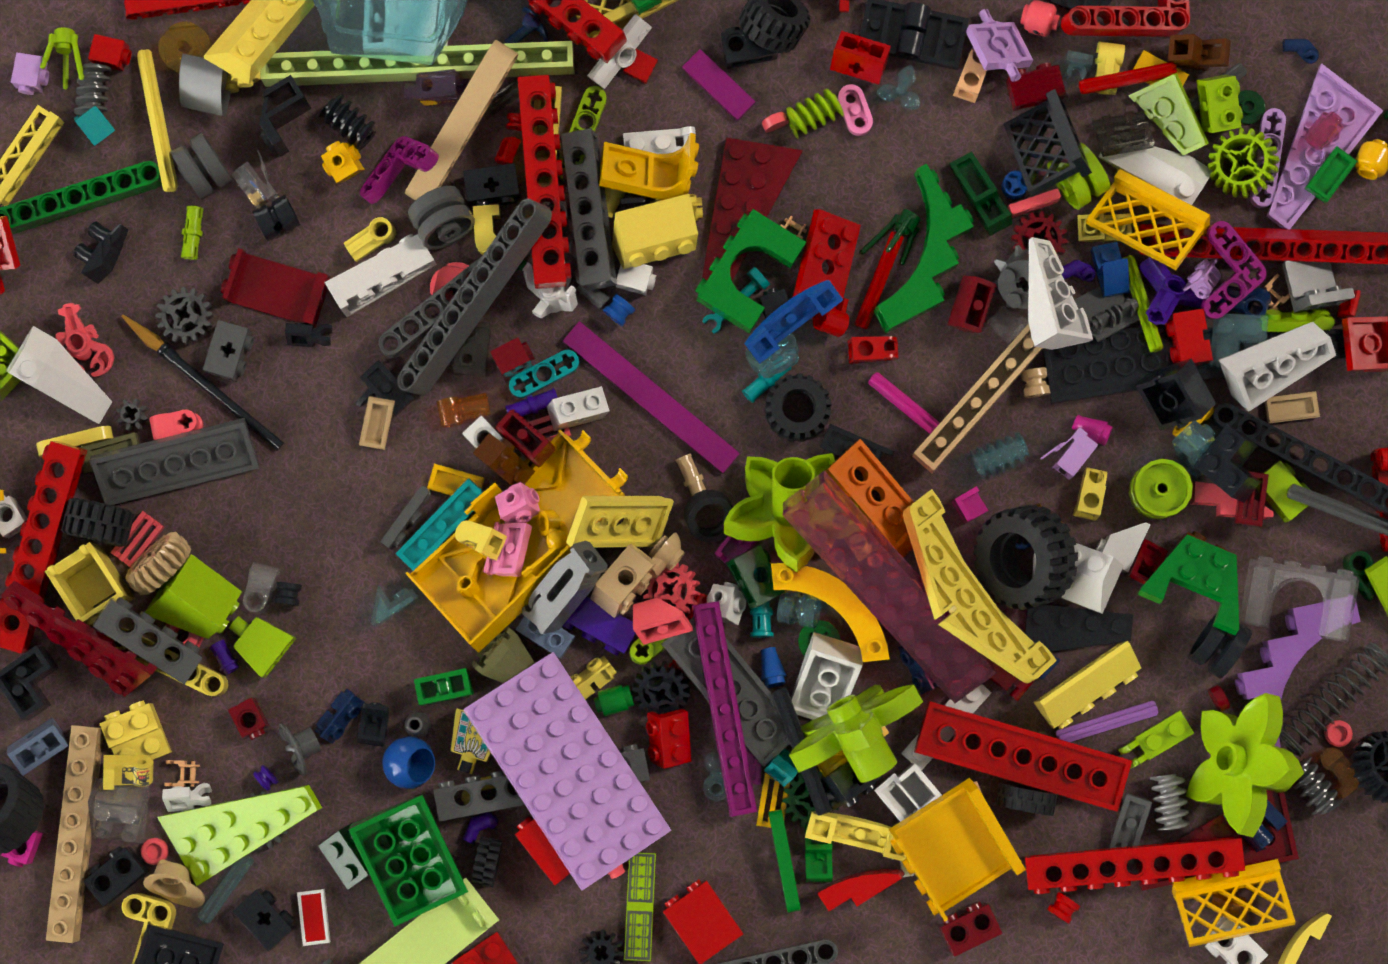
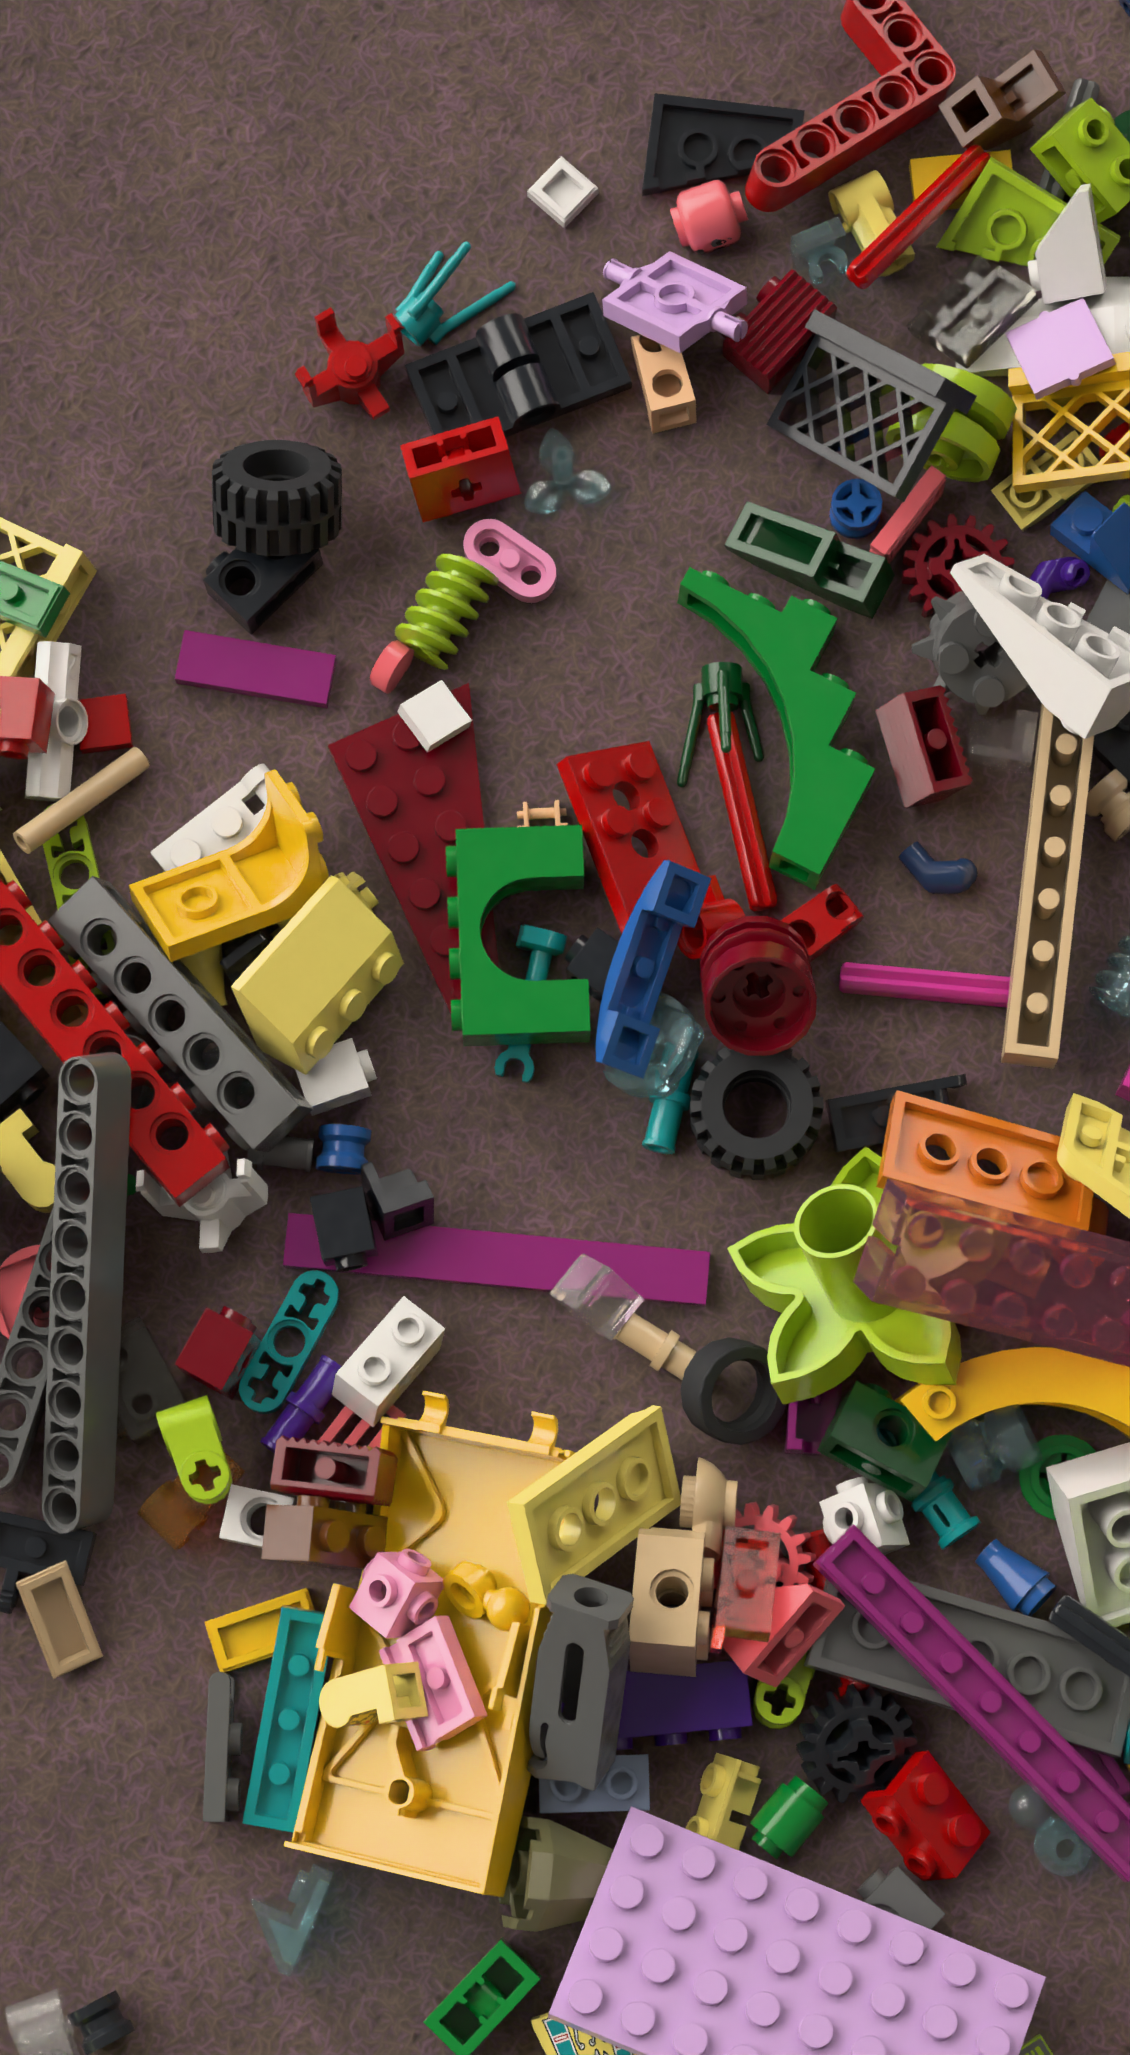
camera: 30 degrees left, 5 degrees down
(476, 387) = (195, 1441): none -> lime piece
(596, 342) = (344, 1228): none -> black brick
(609, 92) = (81, 800): none -> tan piece
(626, 346) = (397, 1201): none -> black panel
(657, 595) = (745, 1586): none -> clear red panel
(680, 439) = (596, 1296): none -> clear panel
(778, 155) = (434, 716): none -> white tile
(831, 357) = (757, 986): none -> dark red wheel
(941, 362) = (938, 876): none -> dark blue arm
(1146, 174) = (1060, 348): none -> lavender piece
(1180, 138) = (1070, 253): none -> white slope

